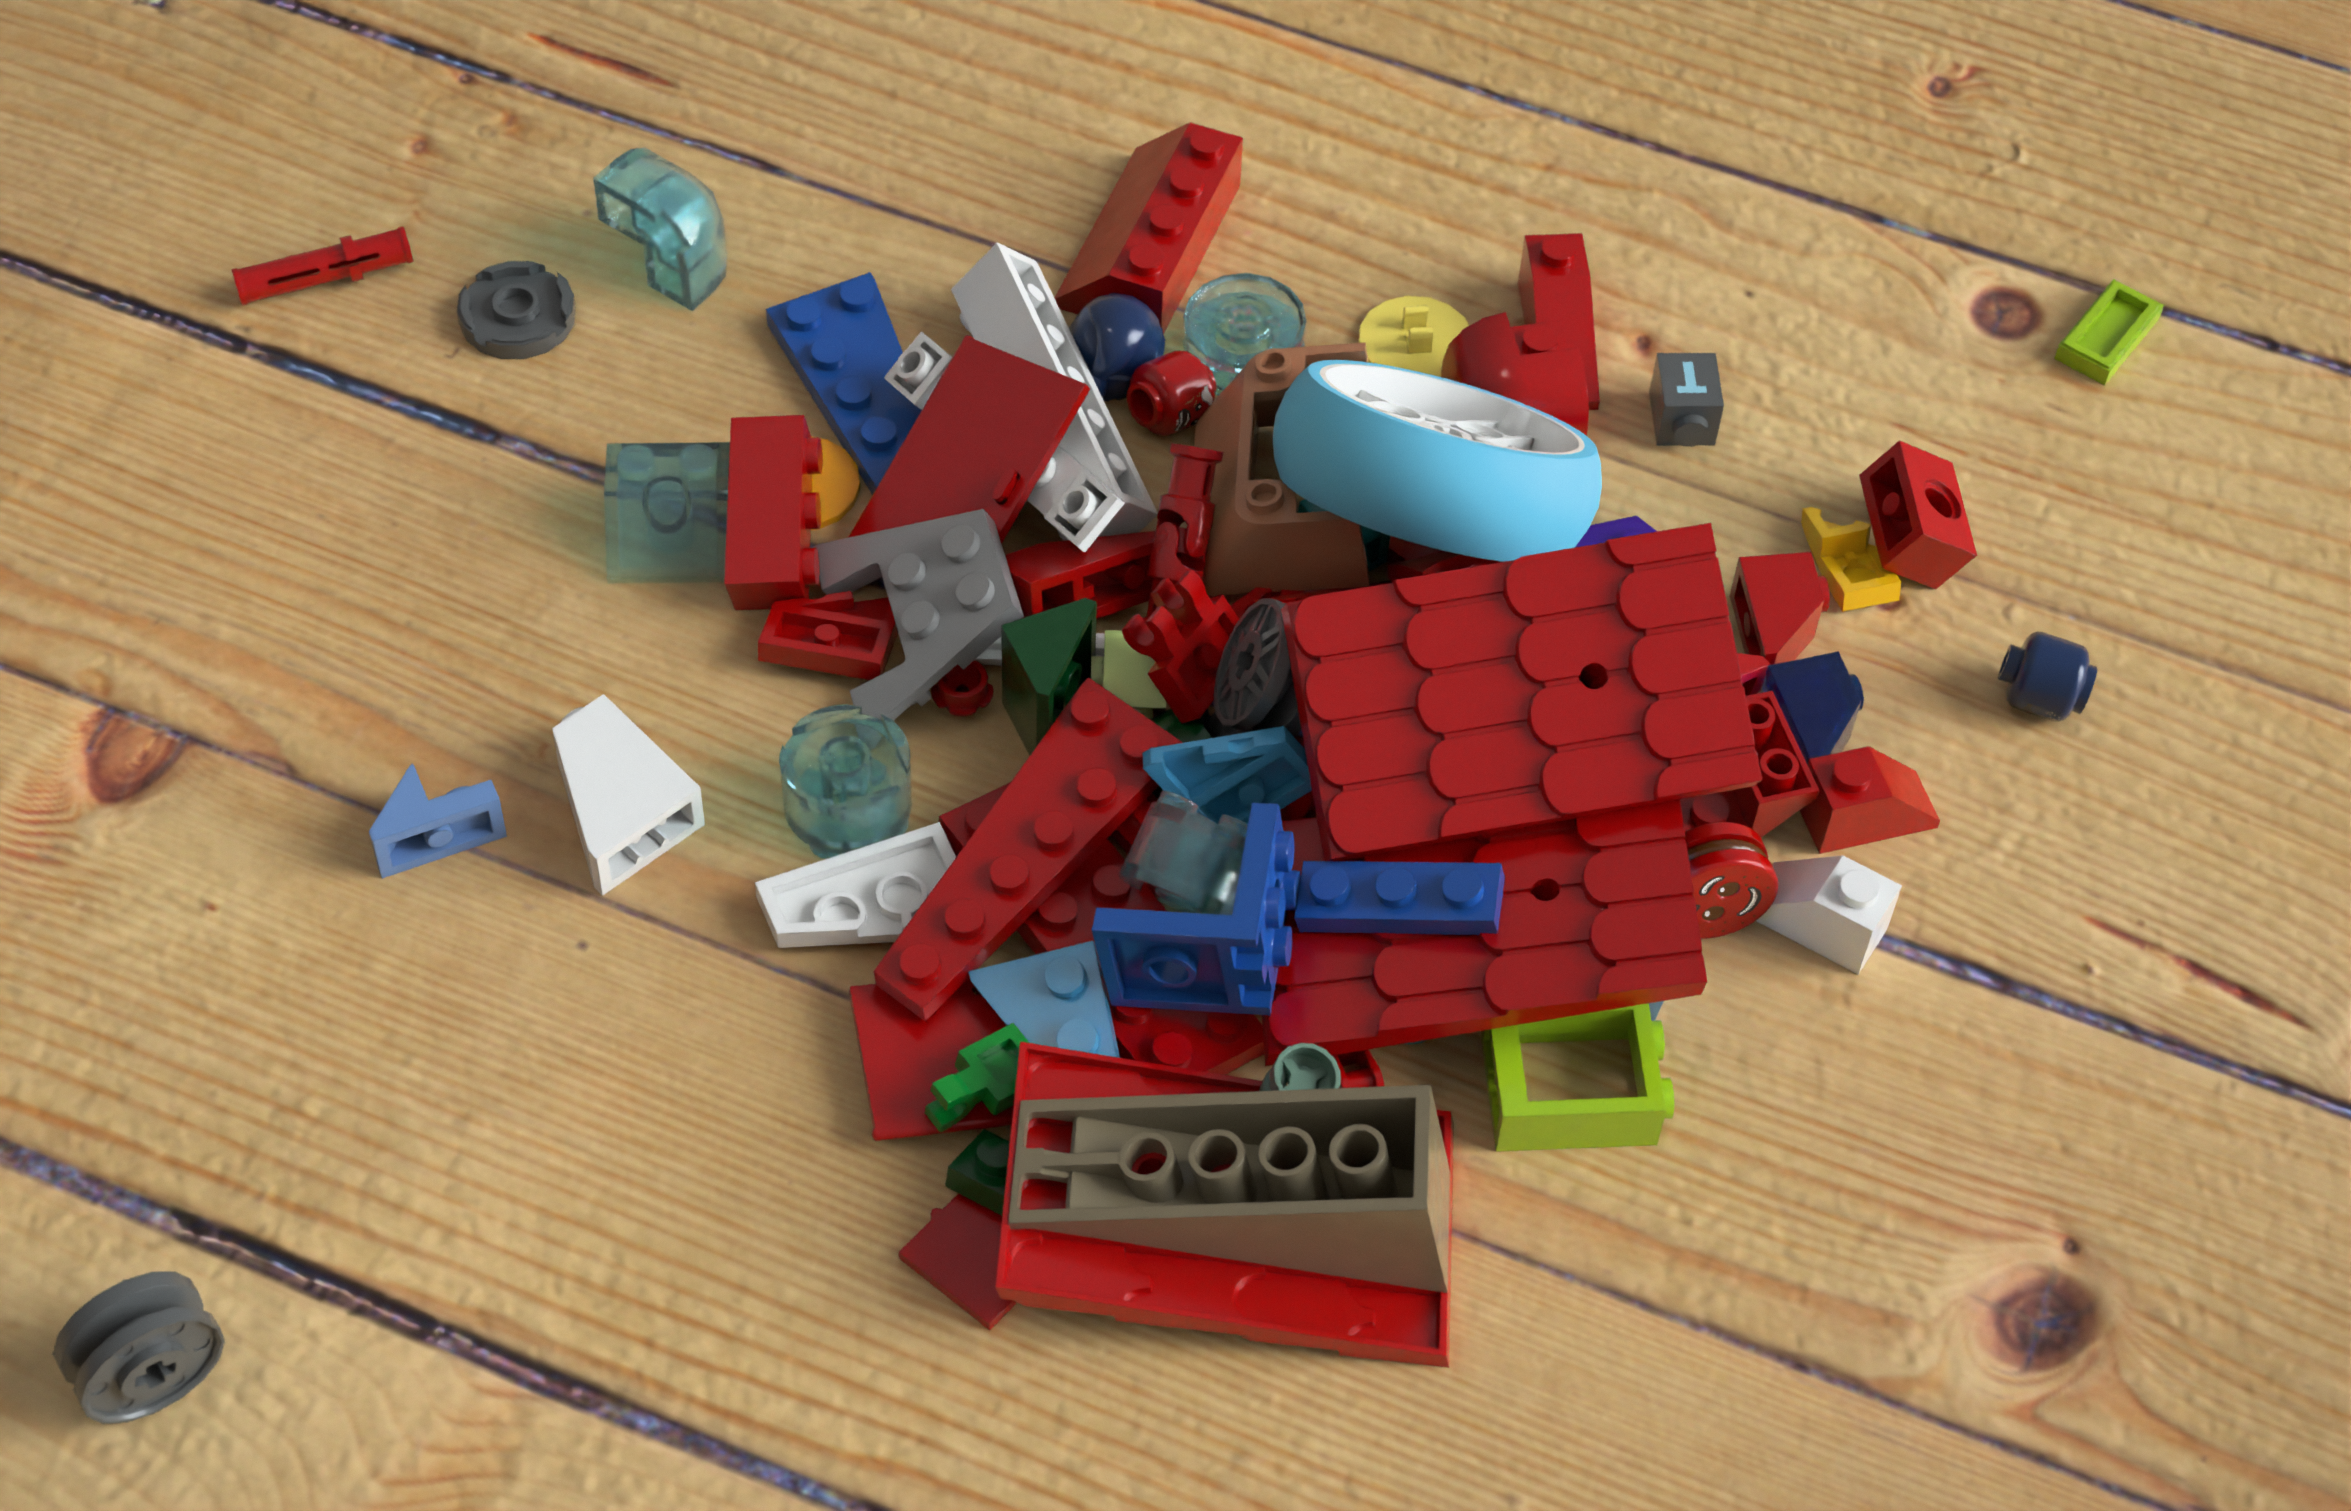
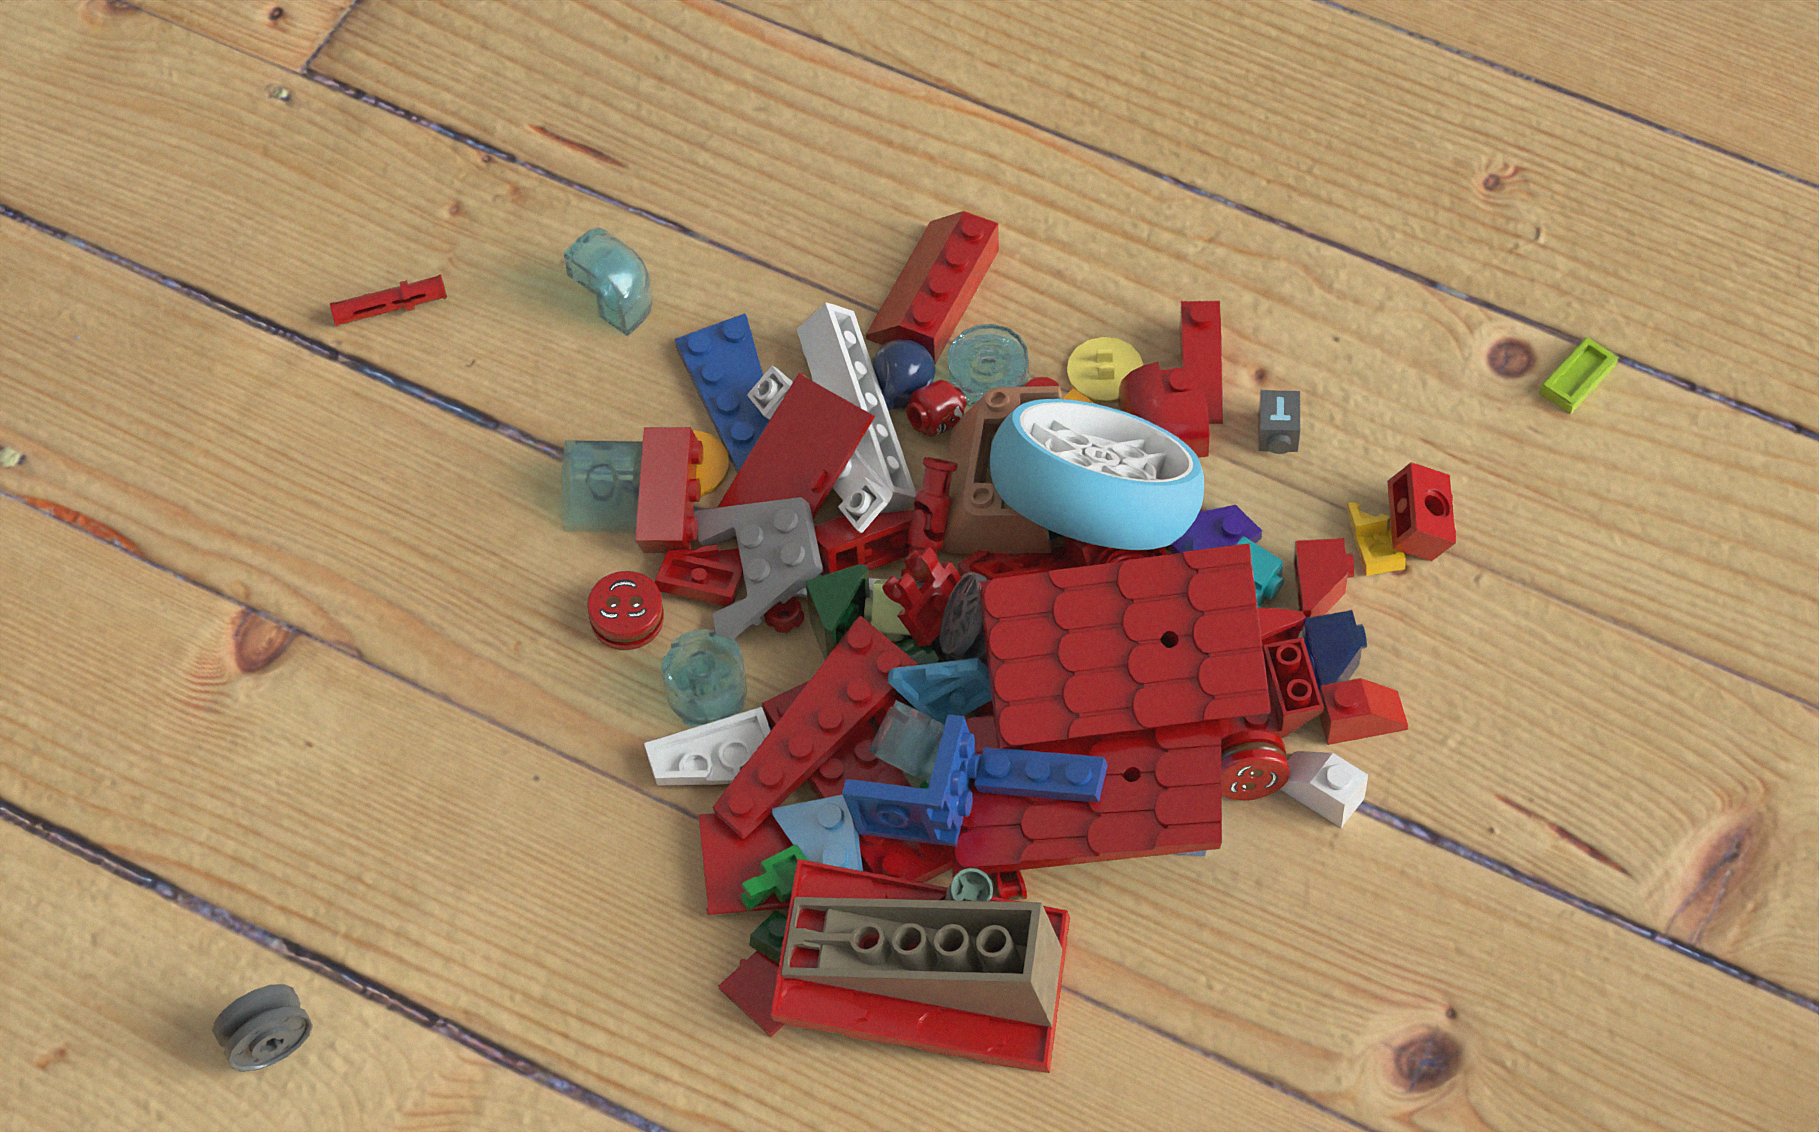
camera: 10 degrees right, 5 degrees up
(424, 830) = (438, 701): medium blue slope -> none
(516, 310) = (513, 334): dark grey tile -> none
(622, 792) = (564, 679): white slope -> none
(713, 690) = (625, 610): none -> red head
(1578, 1122) = (1150, 921): lime window -> none
(2048, 676) = (1491, 629): dark blue head -> none

